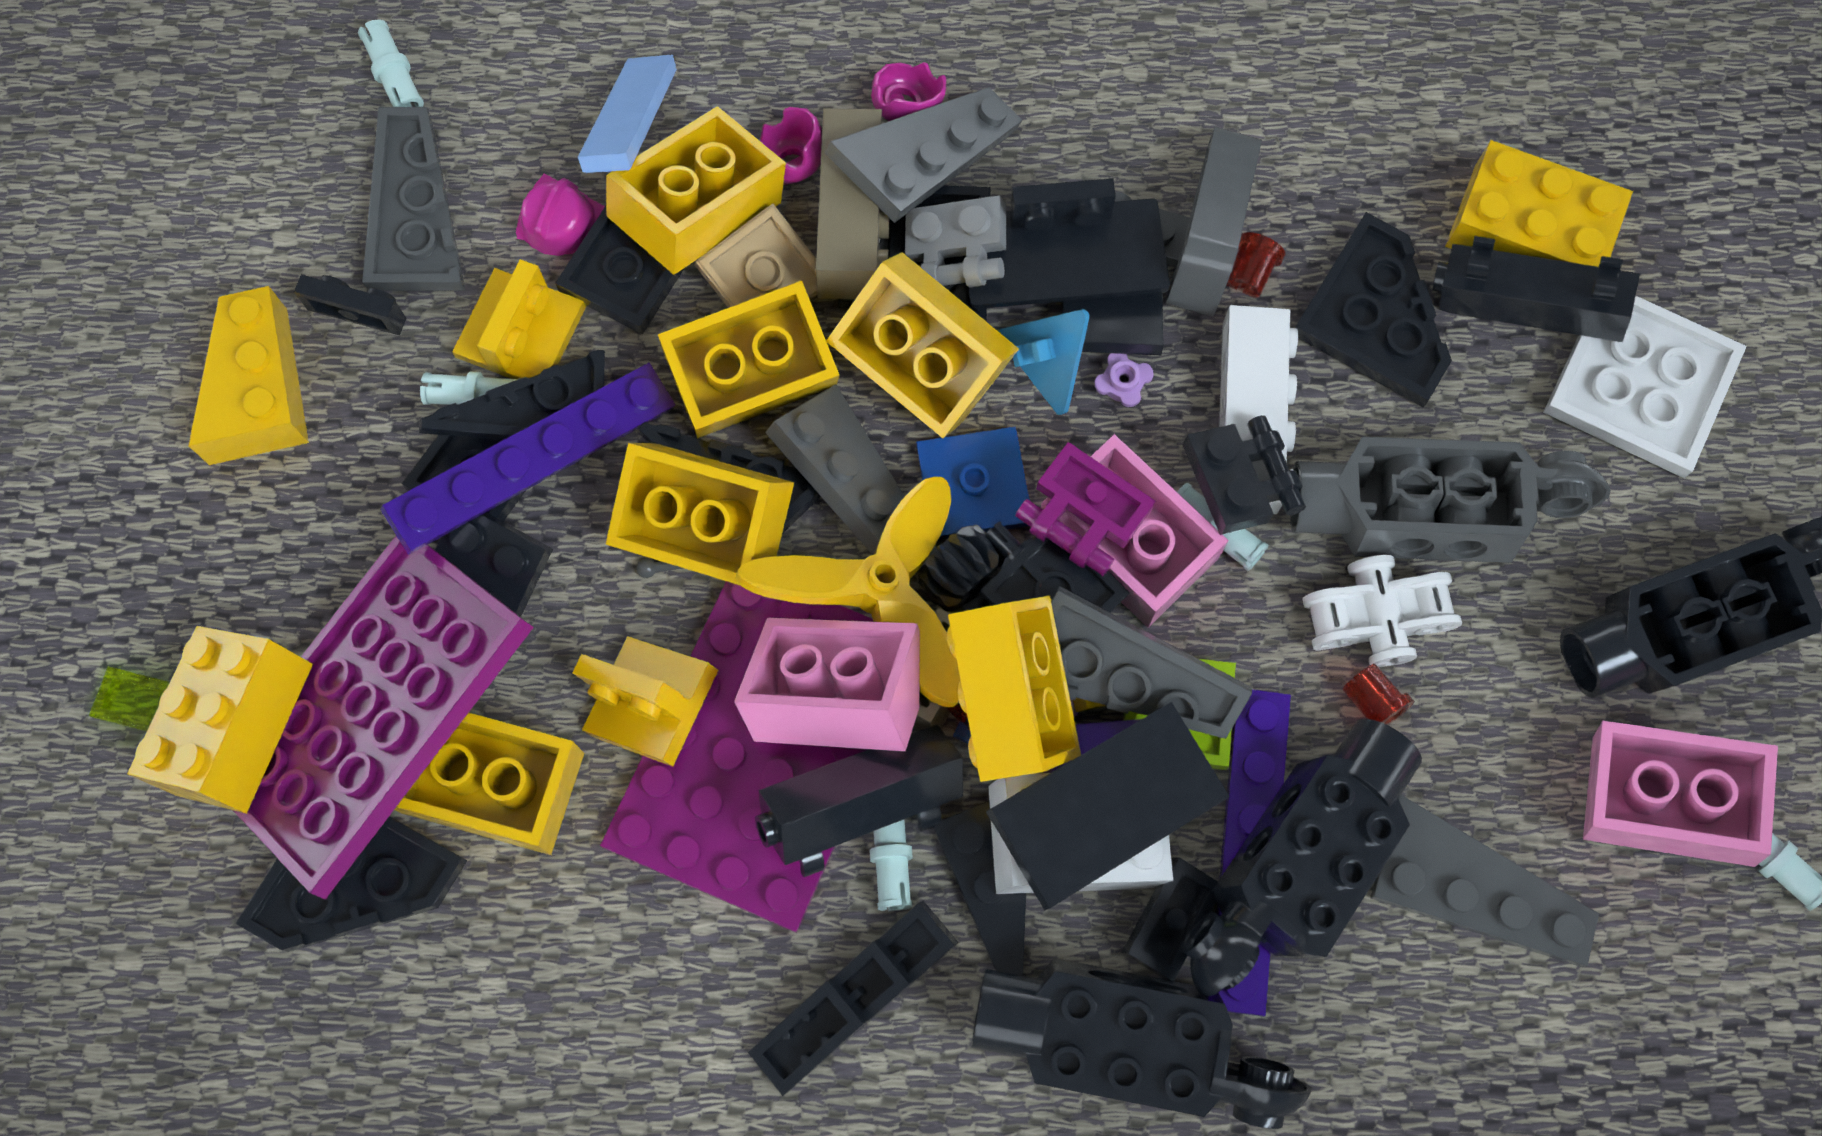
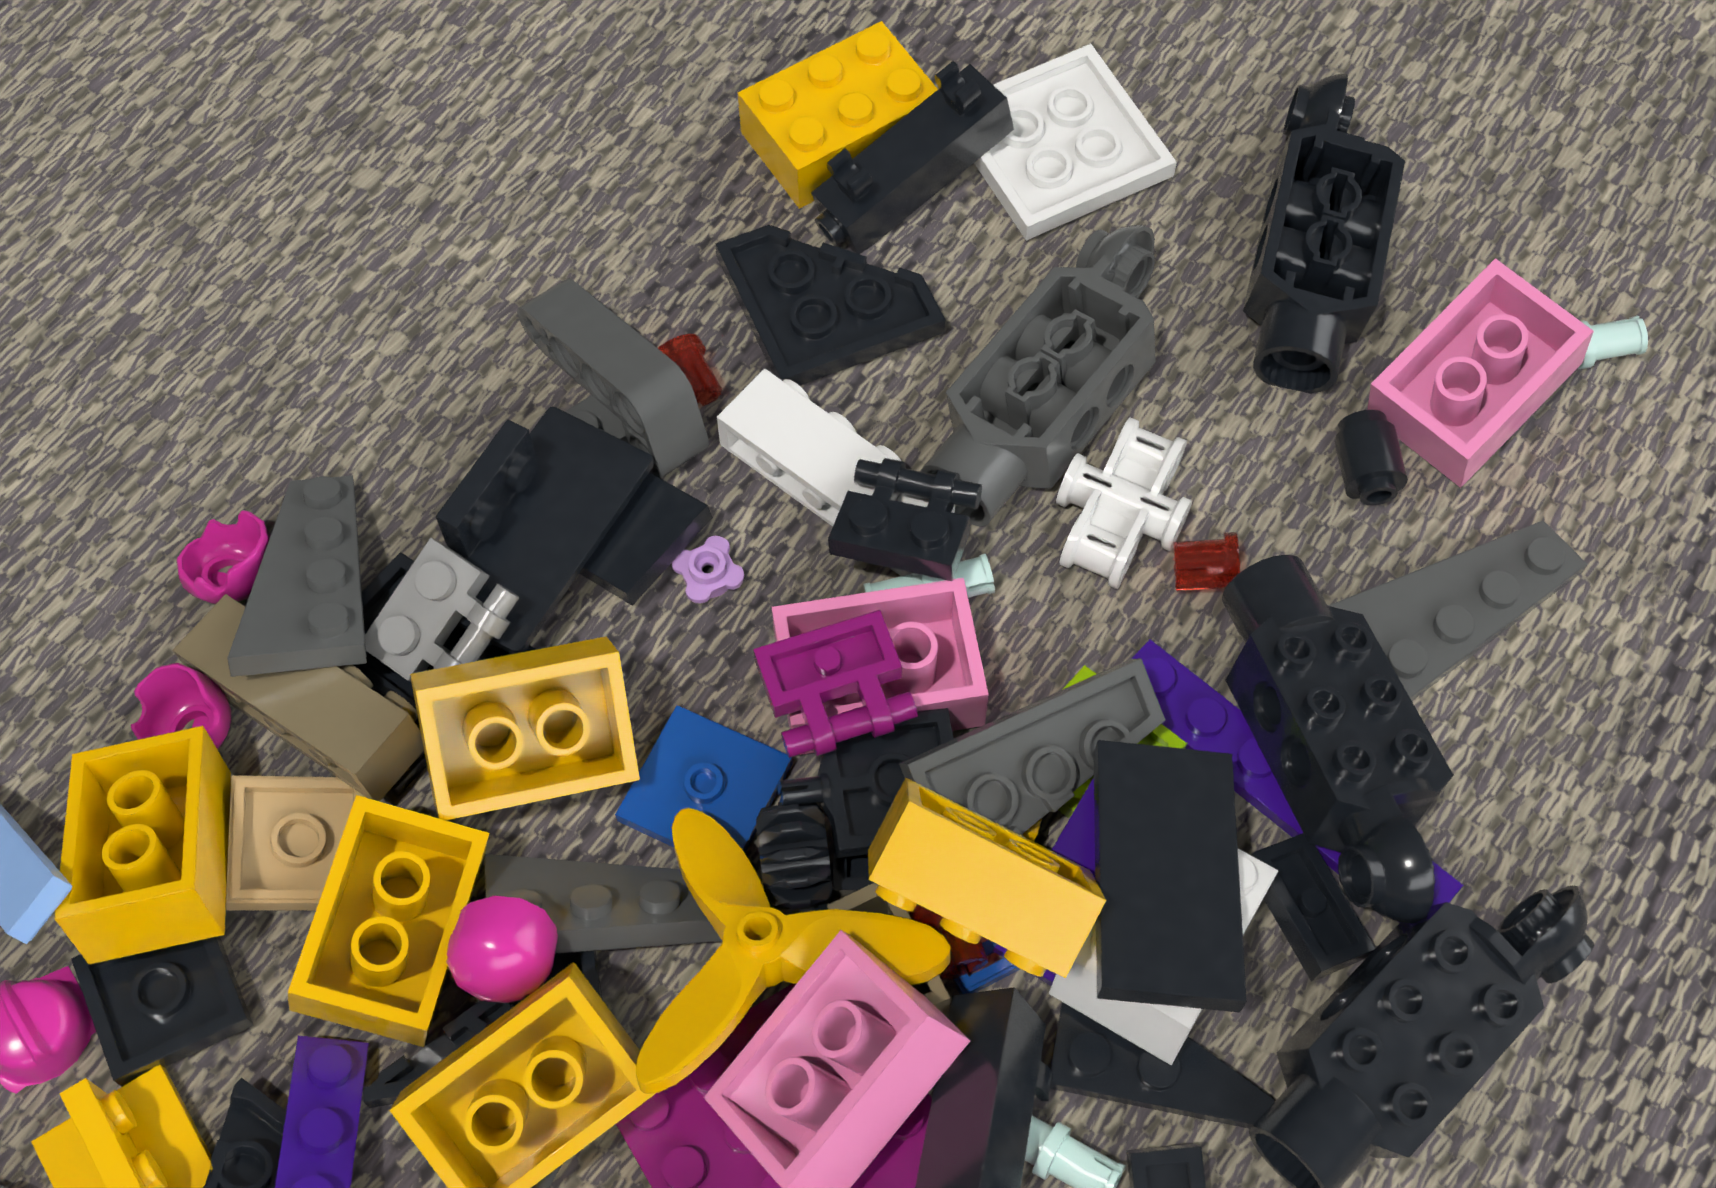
camera: 55 degrees left, 10 degrees down
(771, 435) = (502, 949): none -> dark pink hair
(1051, 354) = (631, 613): dark azure piece -> none
(1551, 759) = (1370, 457): none -> black brick

